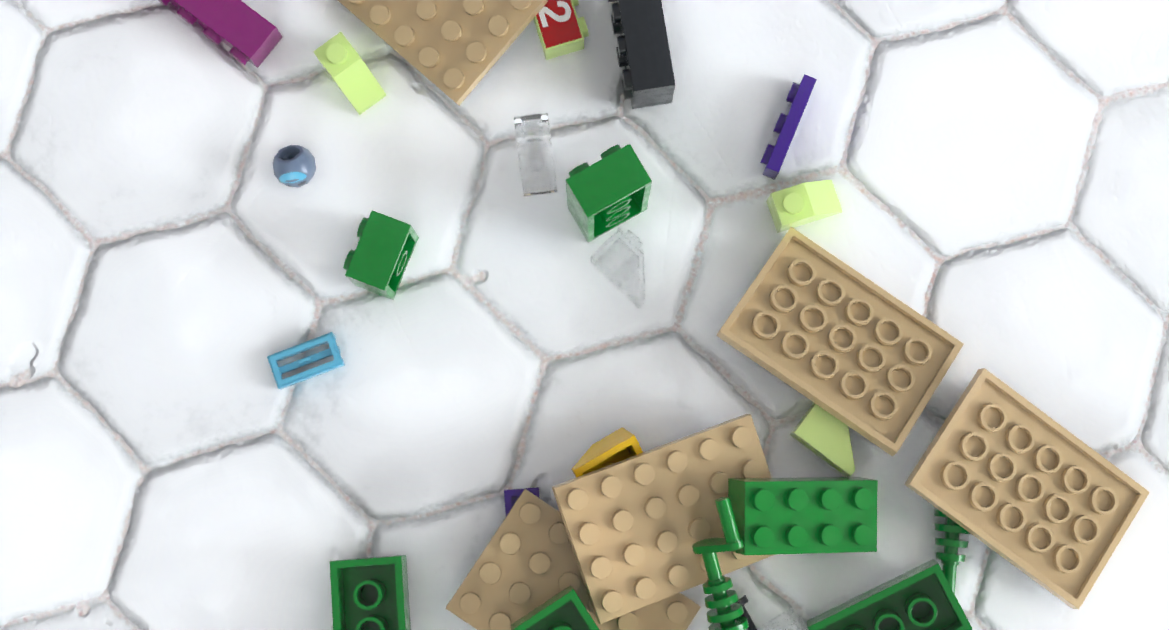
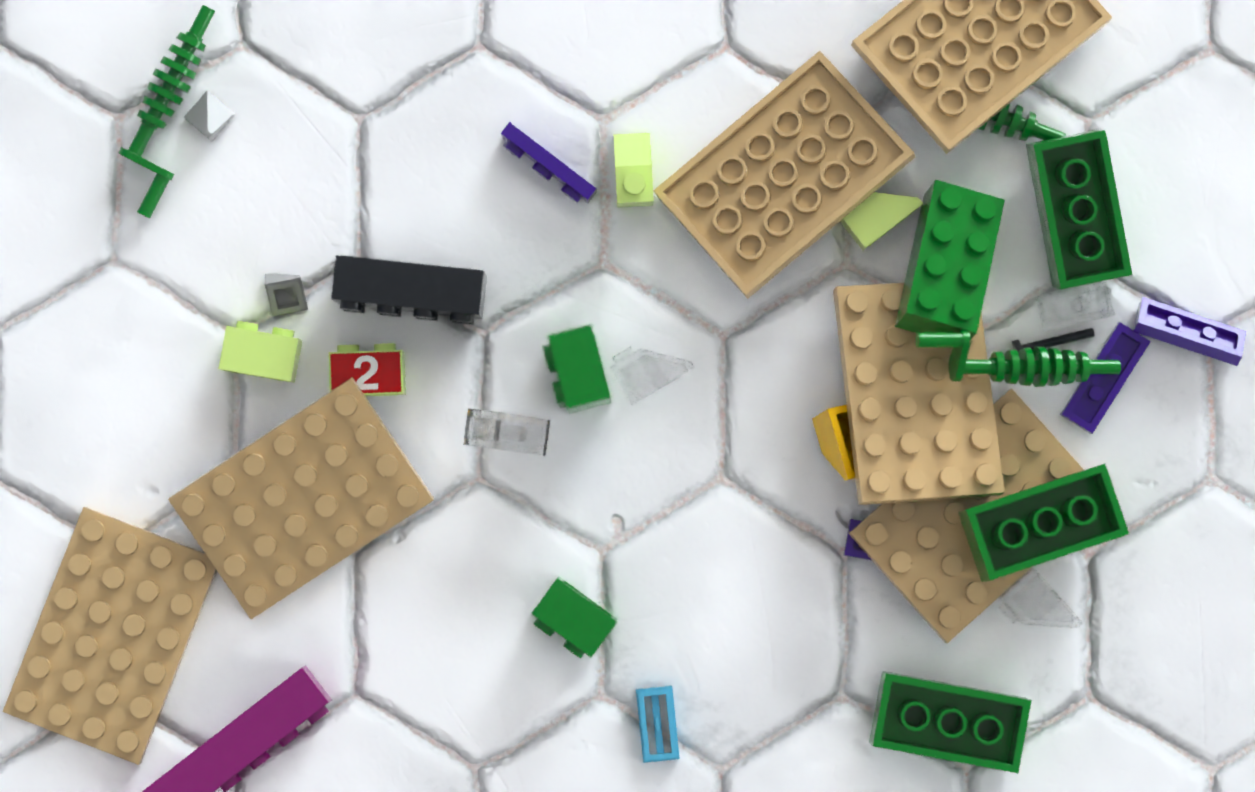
camera: 80 degrees left, 5 degrees up
(294, 166) = (452, 685): sand blue piece -> none
(349, 73) = (369, 602): yellowish green slope -> none

